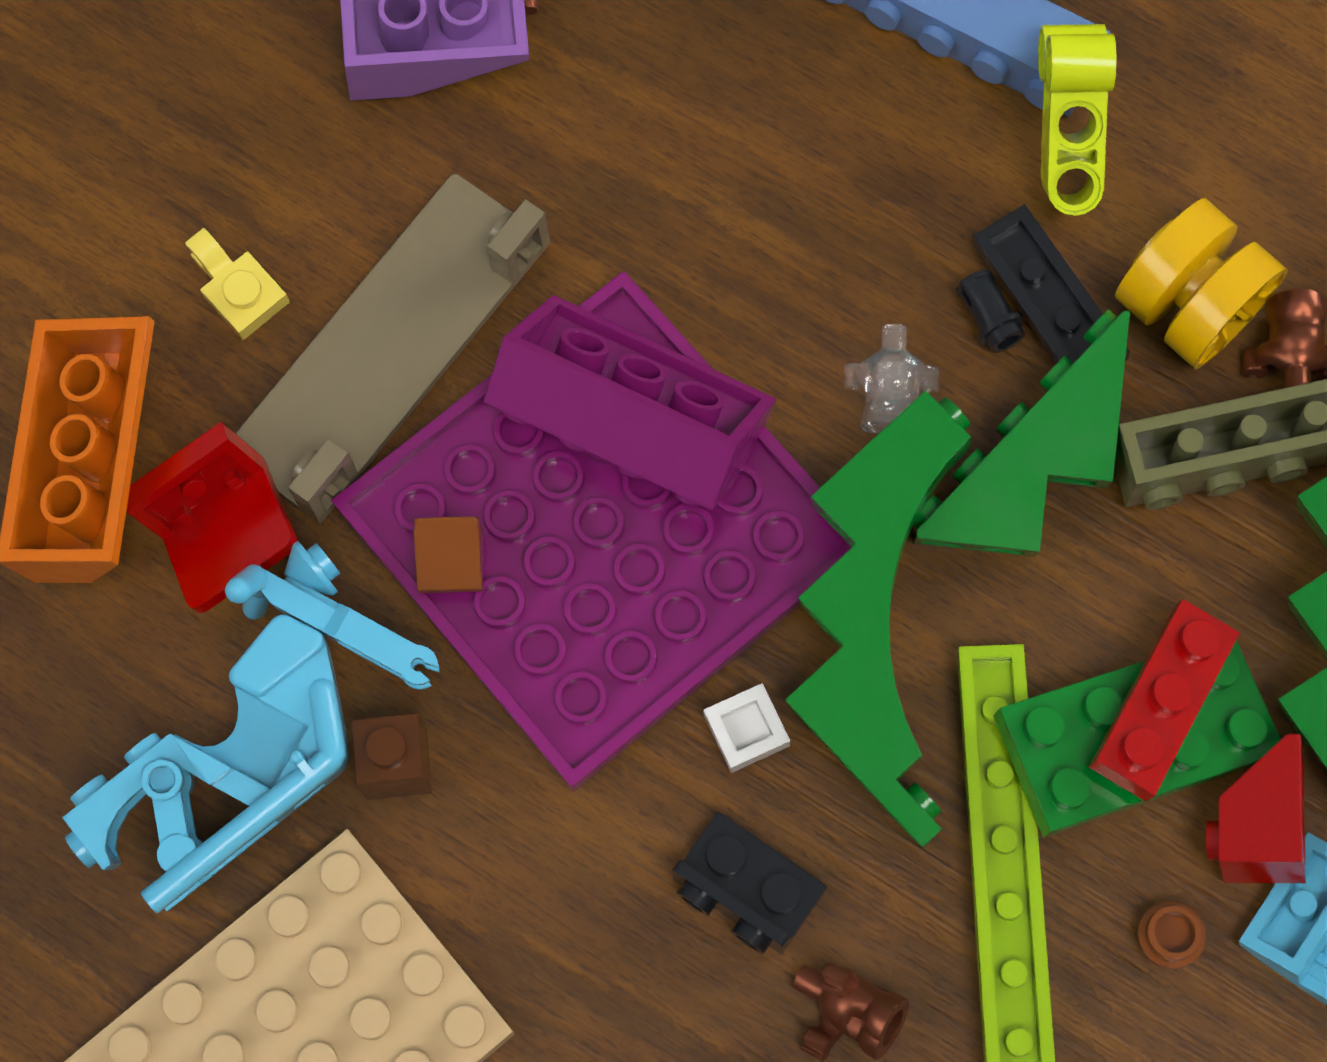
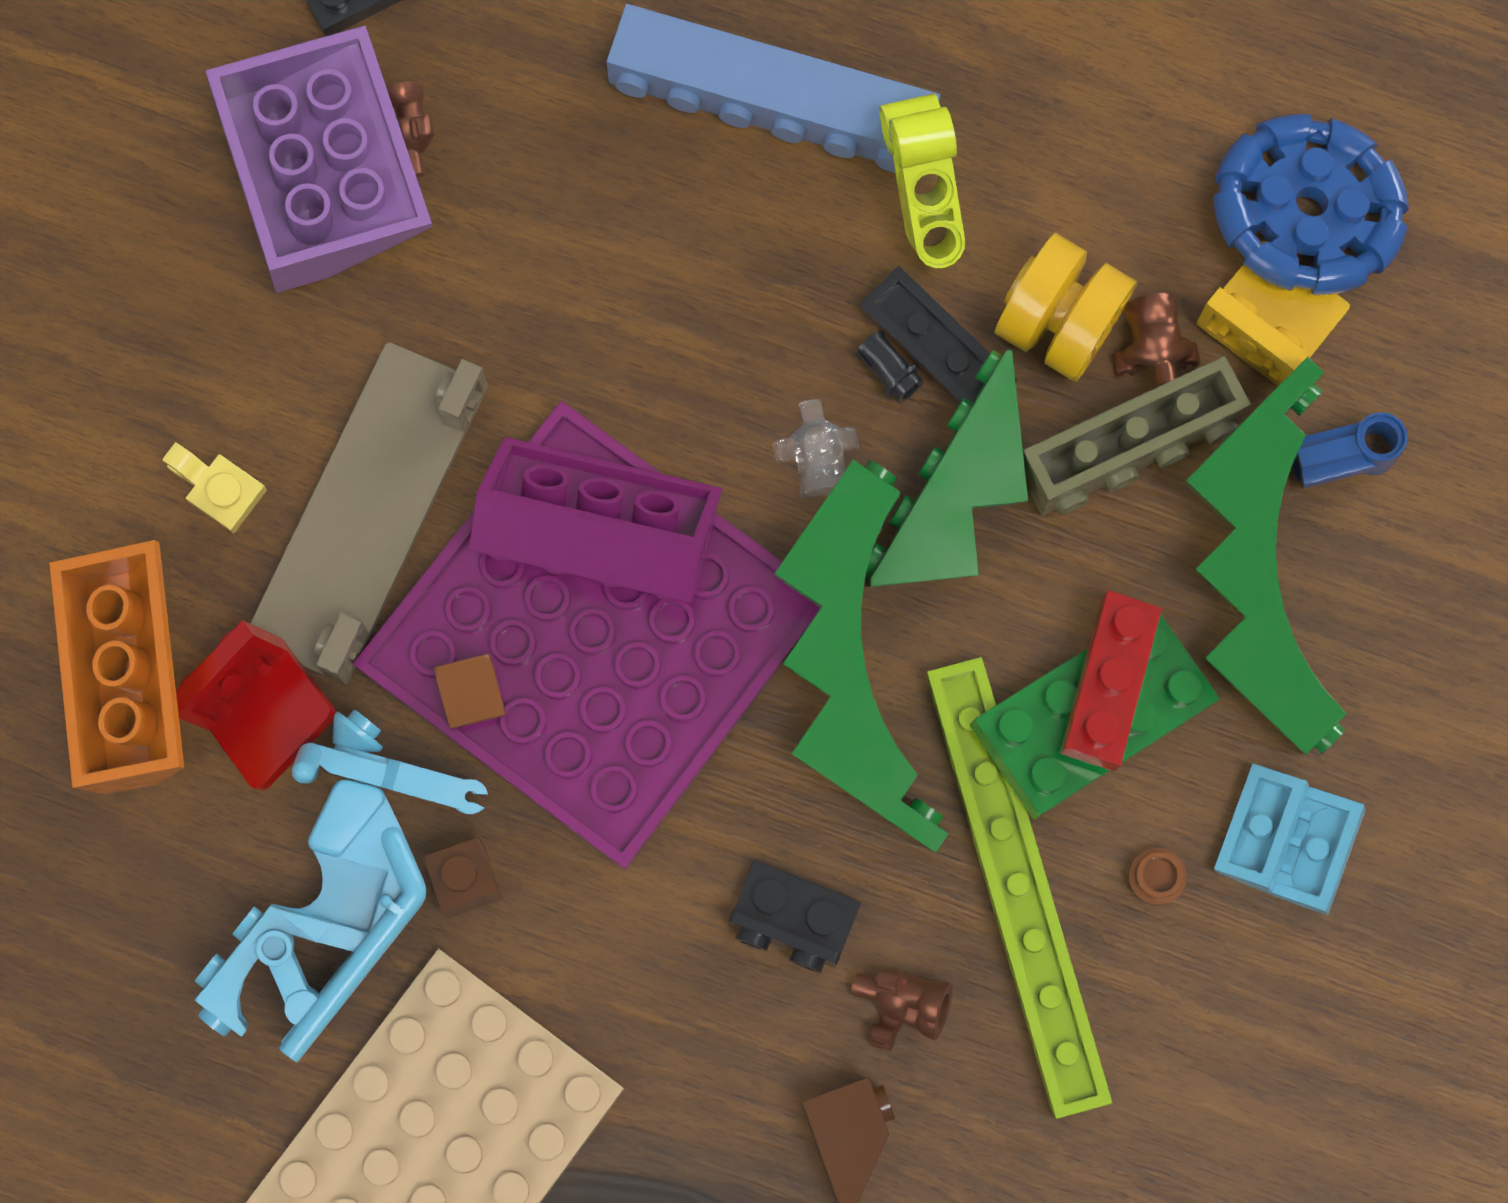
camera: 20 degrees left, 5 degrees up
(746, 728) = (762, 782): white plate -> none
(1263, 820) = (1214, 763): red slope -> none

